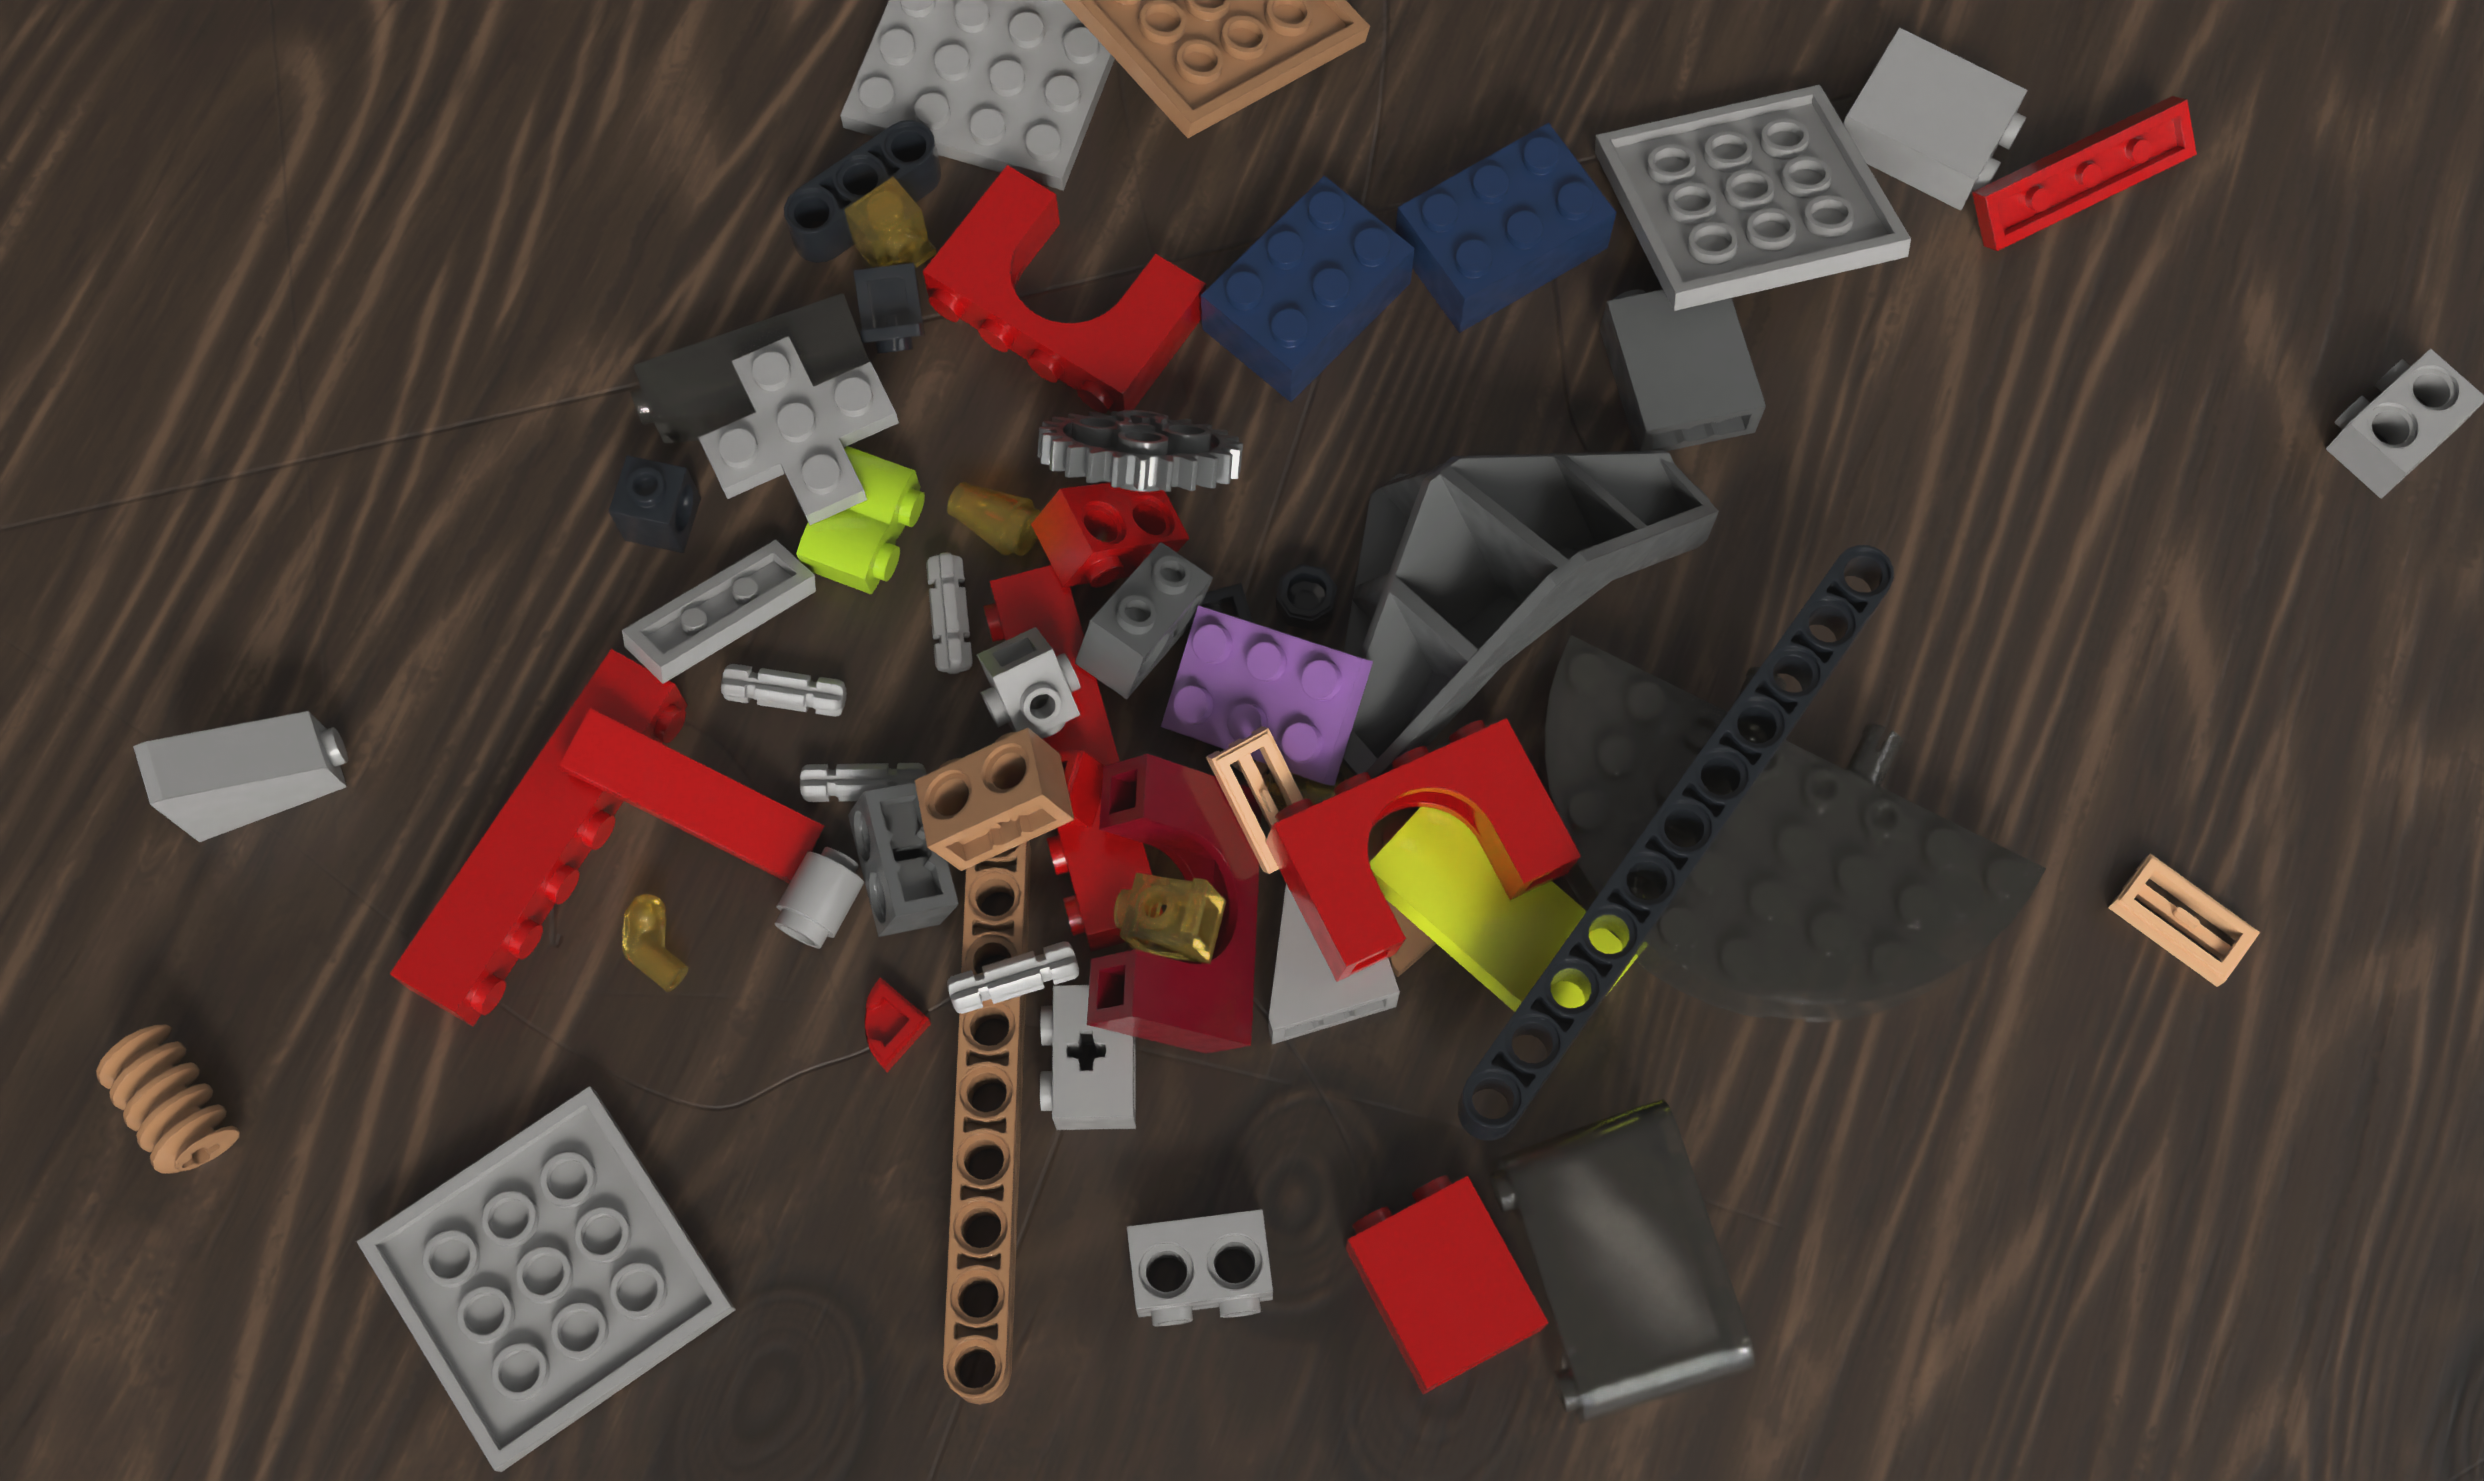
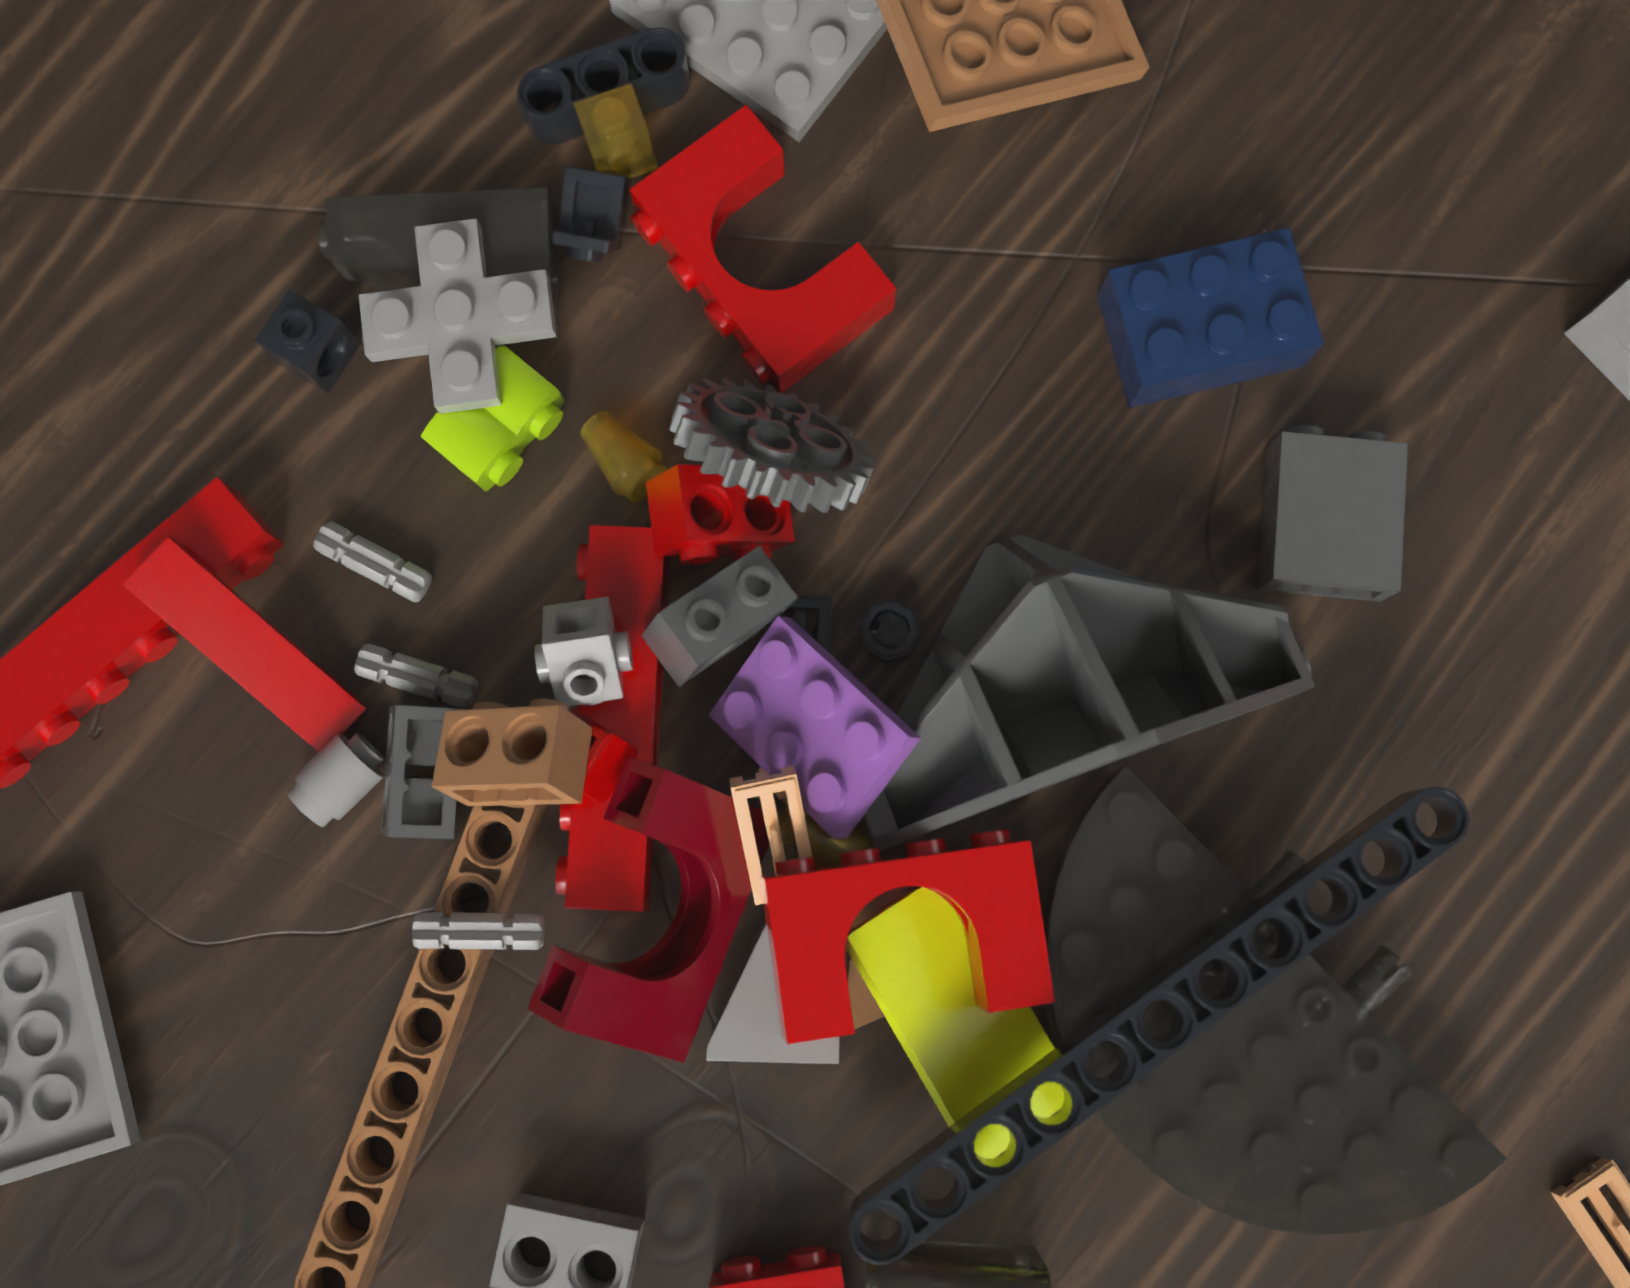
camera: 20 degrees right, 10 degrees up
(645, 942) = (169, 767): clear yellow arm -> none
(718, 611) = (331, 469): light grey plate -> none
(891, 1024) = (367, 918): red tile -> none
(949, 613) = (549, 536): light grey axle -> none
(1089, 1097) = (504, 1050): light grey brick -> none
(1185, 928) = (660, 932): clear yellow brick -> none
(1307, 288) = (995, 320): dark blue brick -> none
(1750, 197) = (1464, 368): light grey plate -> none

